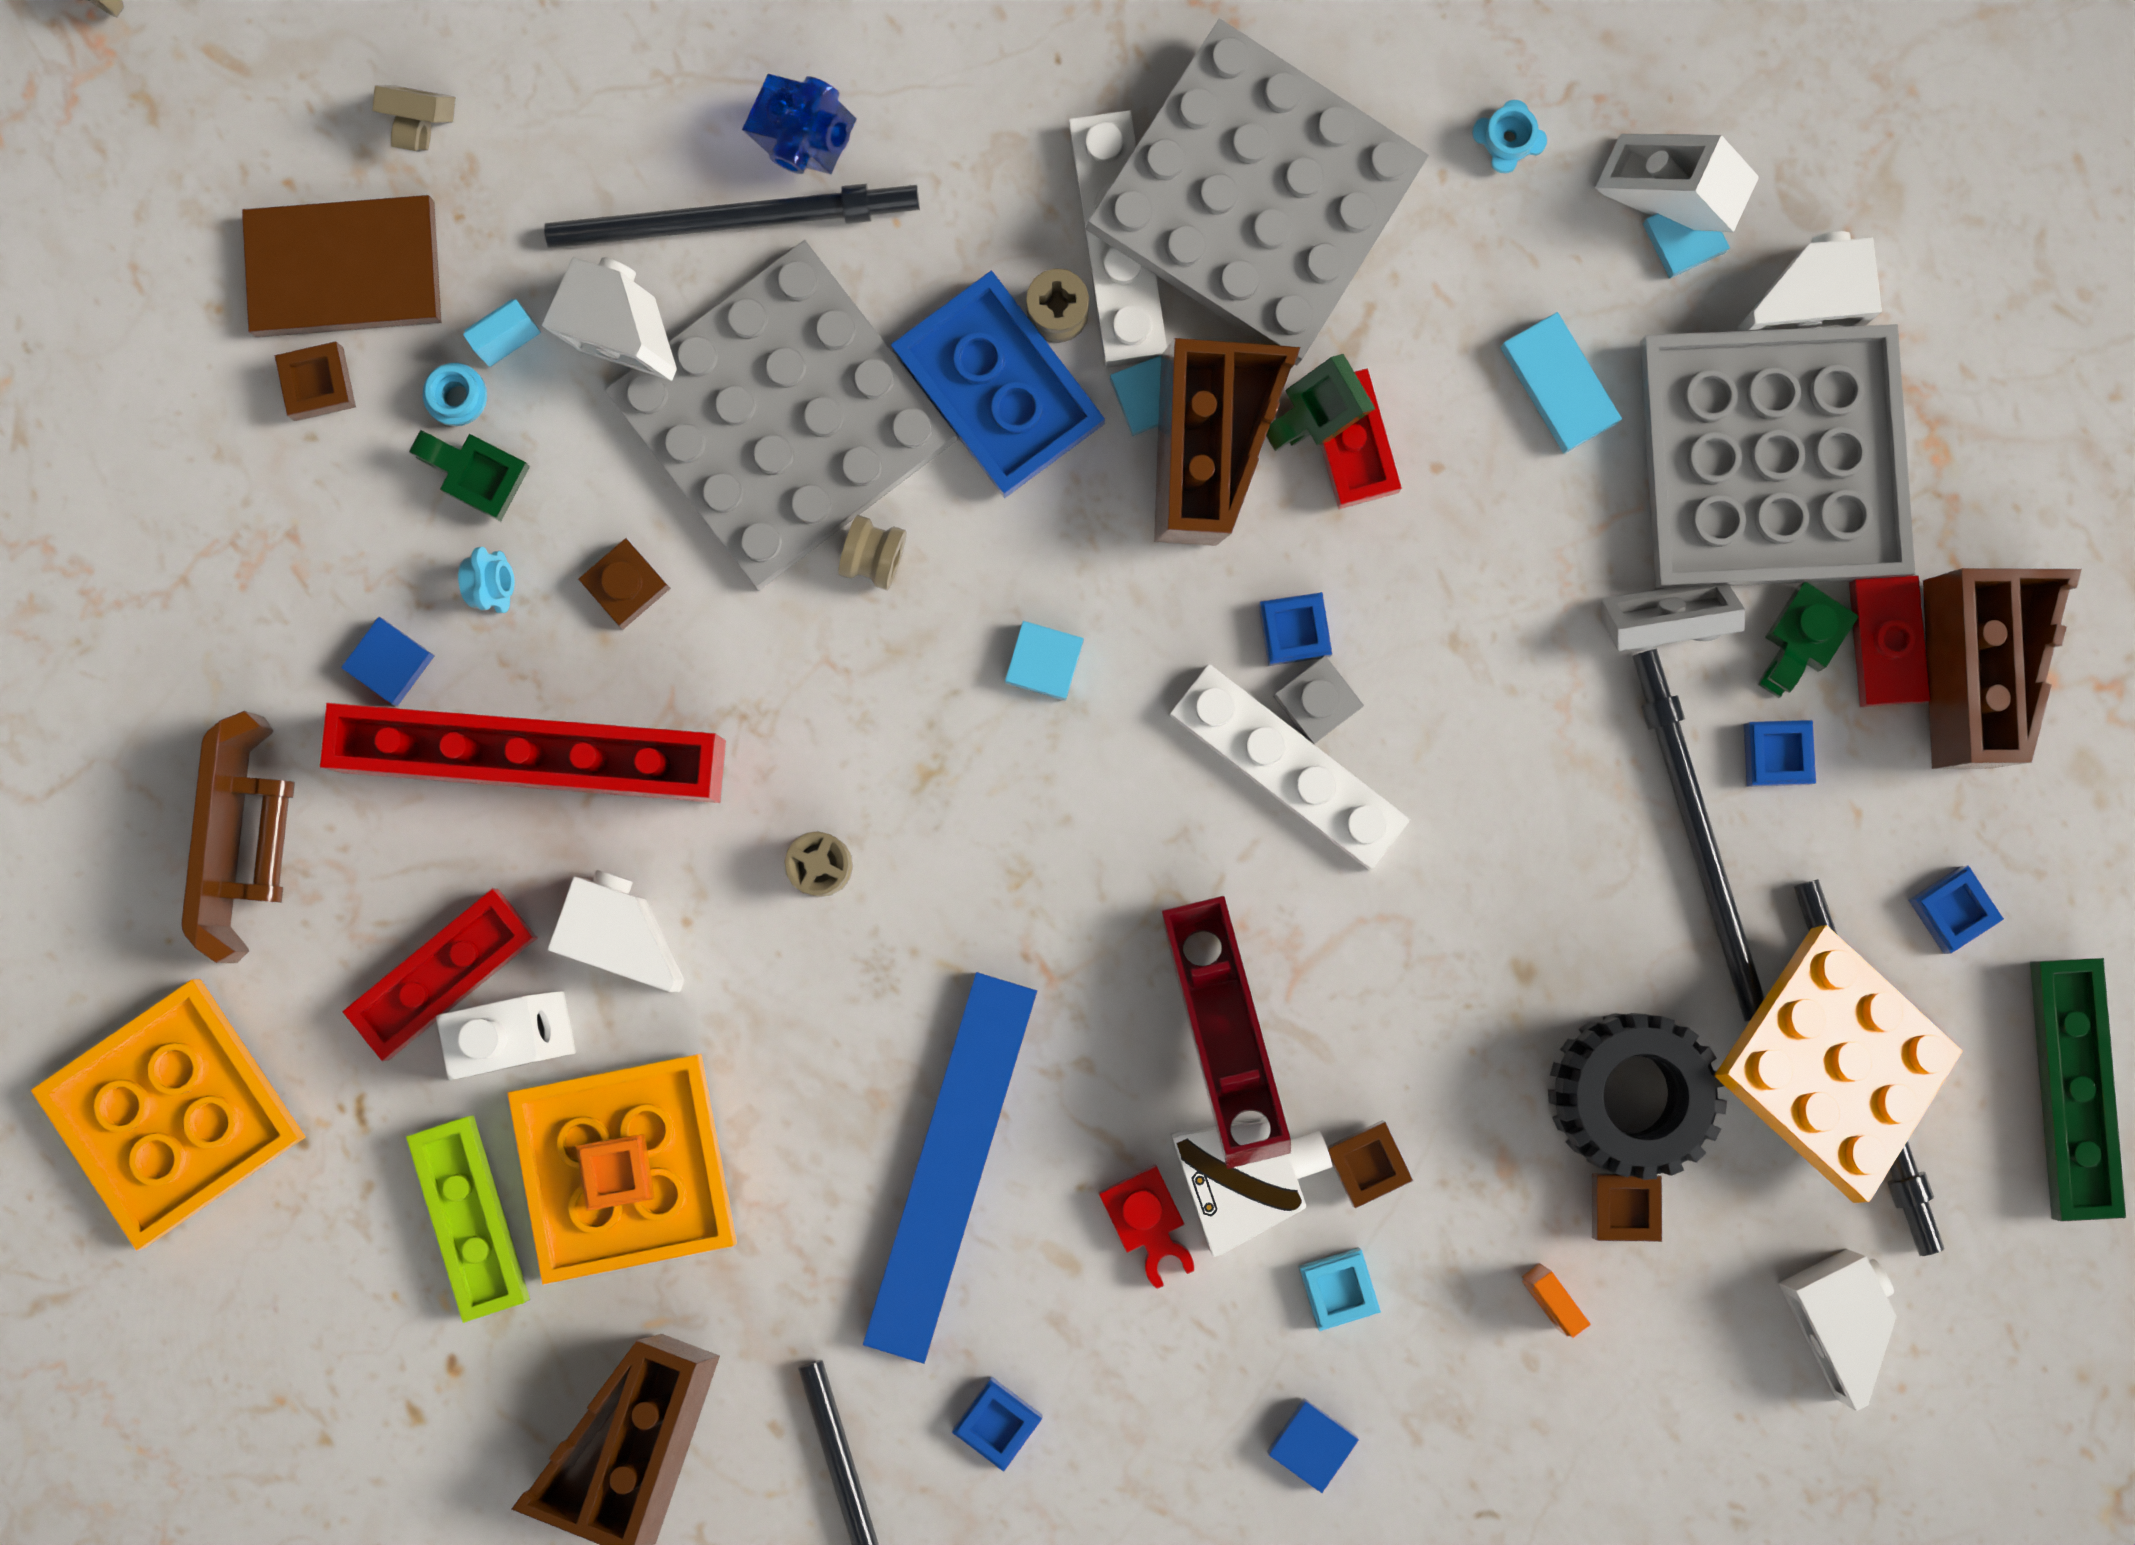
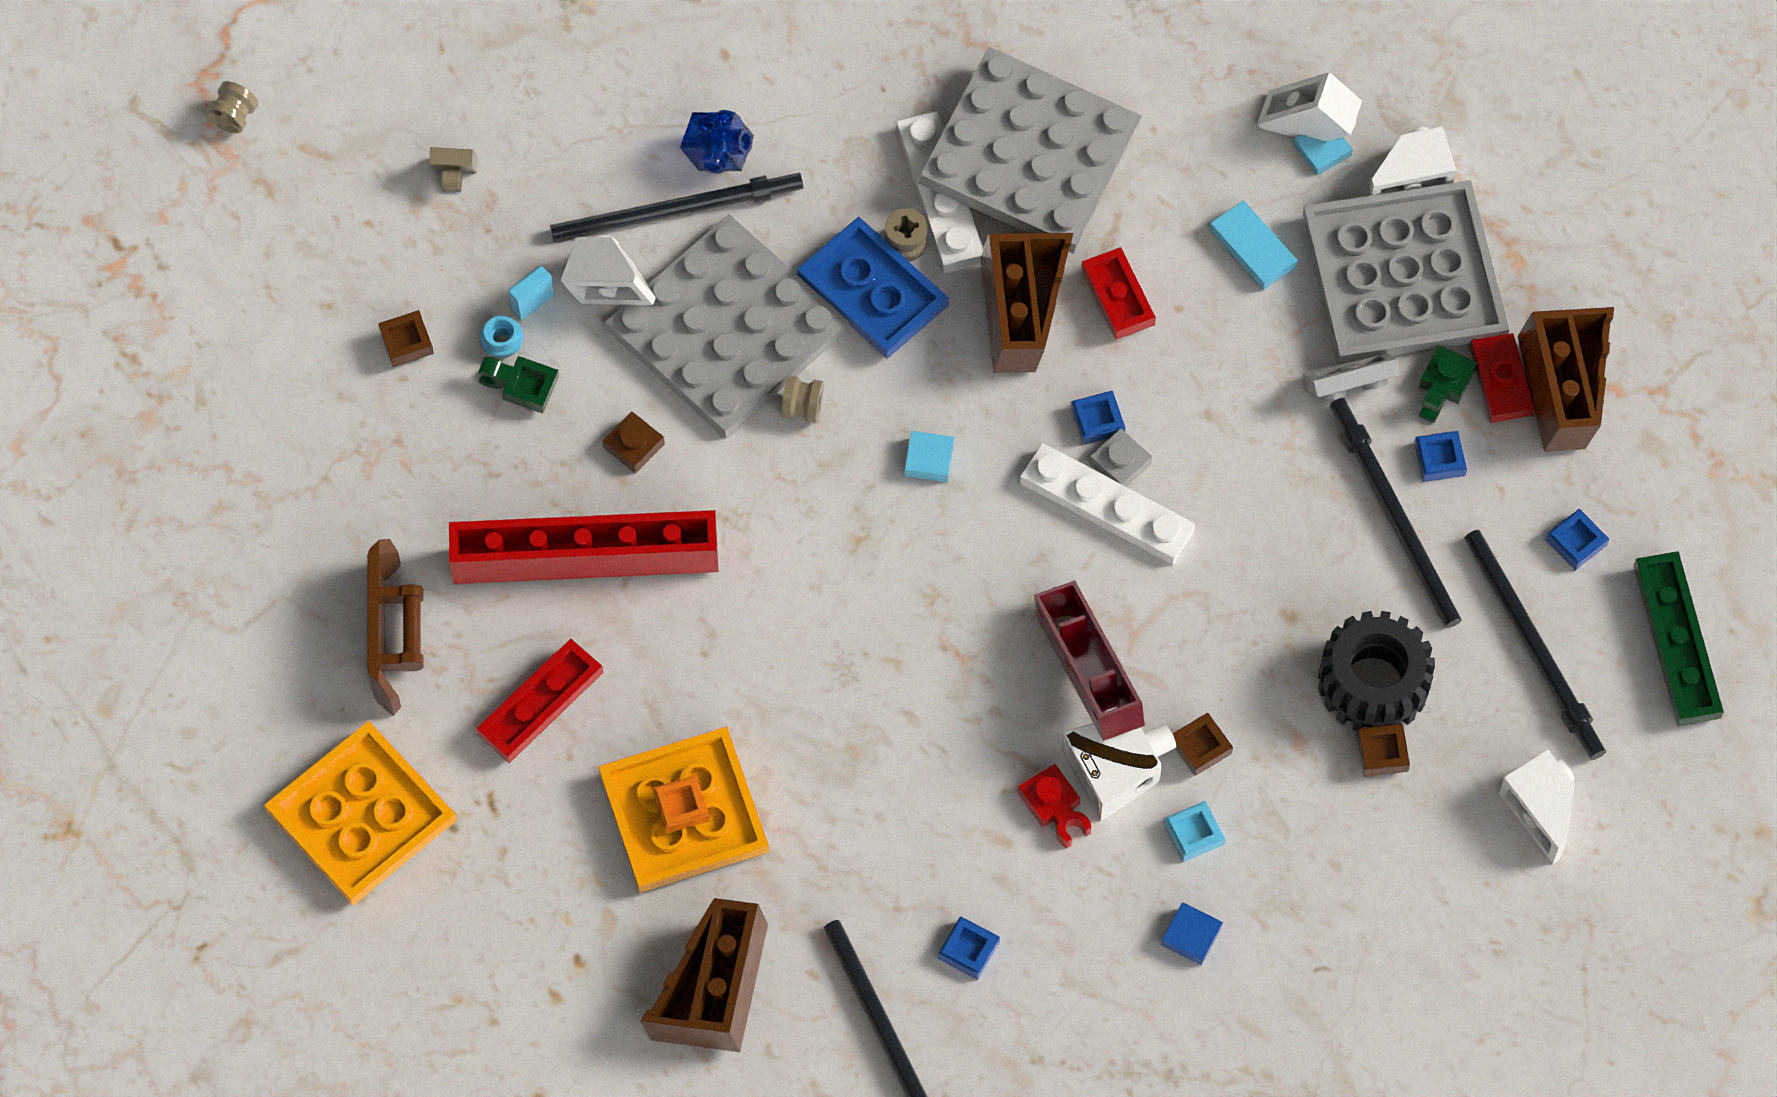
camera: 10 degrees left, 20 degrees down
(341, 266) = (413, 267): reddish brown tile -> none
(388, 661) = (476, 504): blue tile -> none
(468, 1218) = (579, 855): lime plate -> none
(486, 580) = (540, 447): medium azure plate -> none
(505, 1034) = (588, 729): white torso -> none
(615, 932) = (659, 659): white slope -> none
(809, 859) = (793, 588): dark tan wheel -> none
(950, 1168) = (911, 785): blue tile -> none
(1138, 394) = (968, 285): medium azure tile -> none
(1323, 403) = (1095, 269): dark green plate -> none
(1512, 118) = (1194, 88): medium azure plate -> none
(1555, 1301) = (1343, 813): orange tile -> none
(1839, 1064) = (1509, 633): plate -> none

